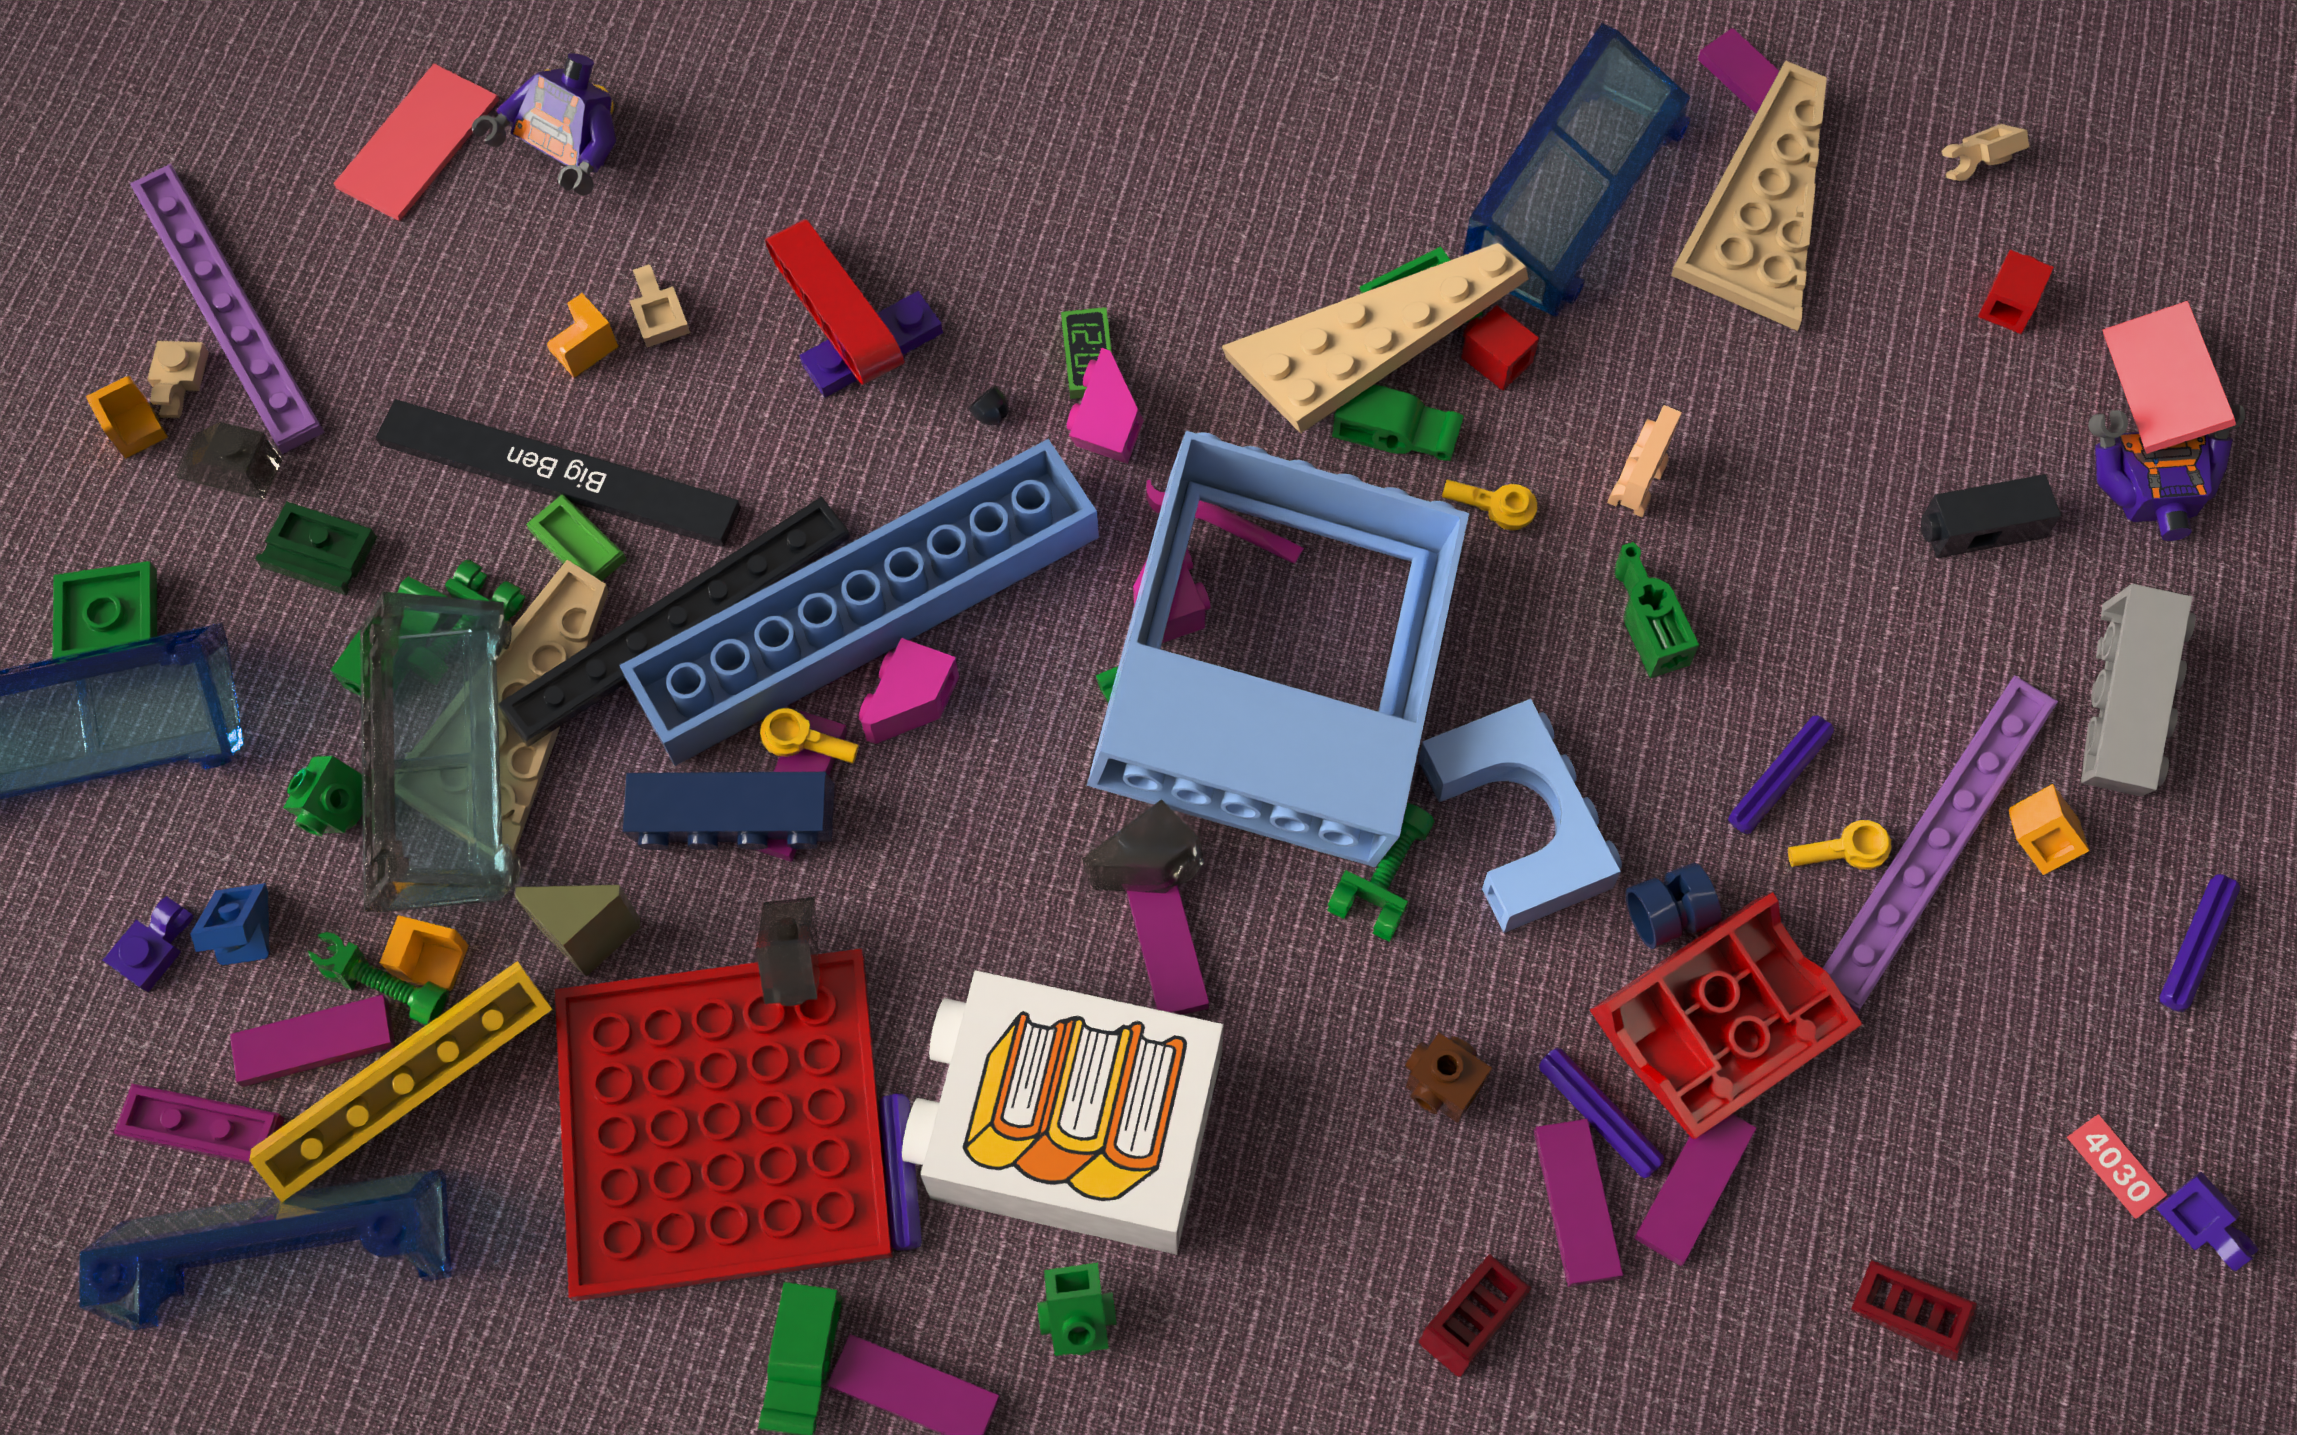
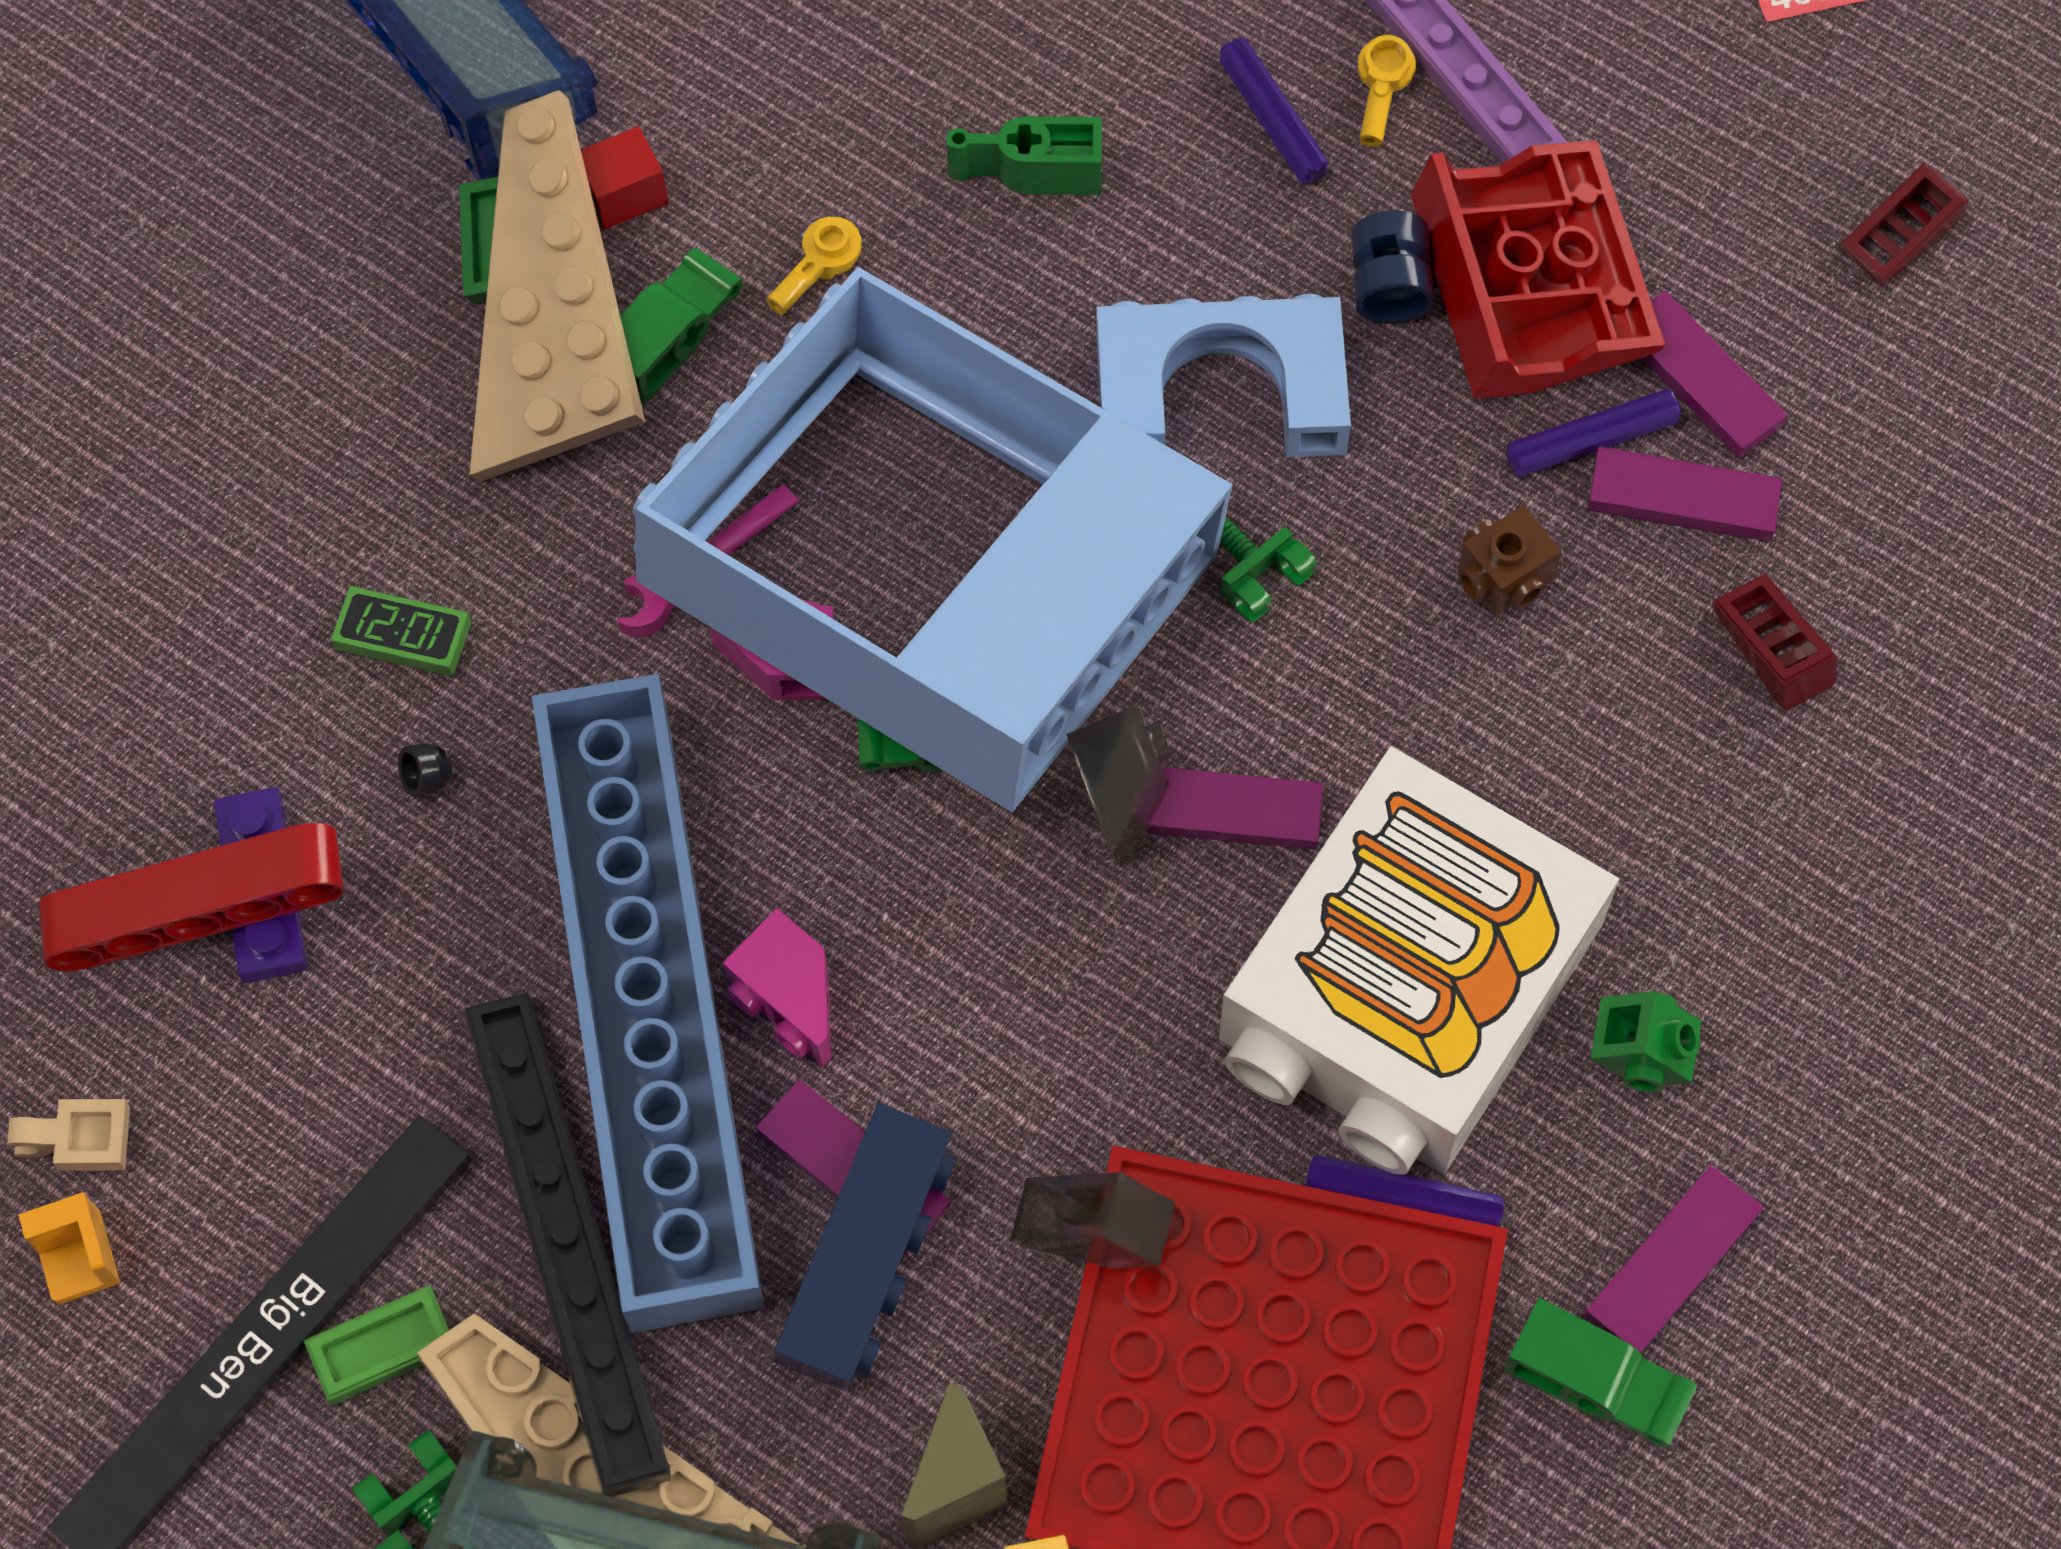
camera: 70 degrees left, 0 degrees up
(788, 733) = (790, 1142): yellow plate -> none
(1108, 415) = (508, 624): dark pink slope -> none
(1645, 462) = (848, 67): light nougat plate -> none

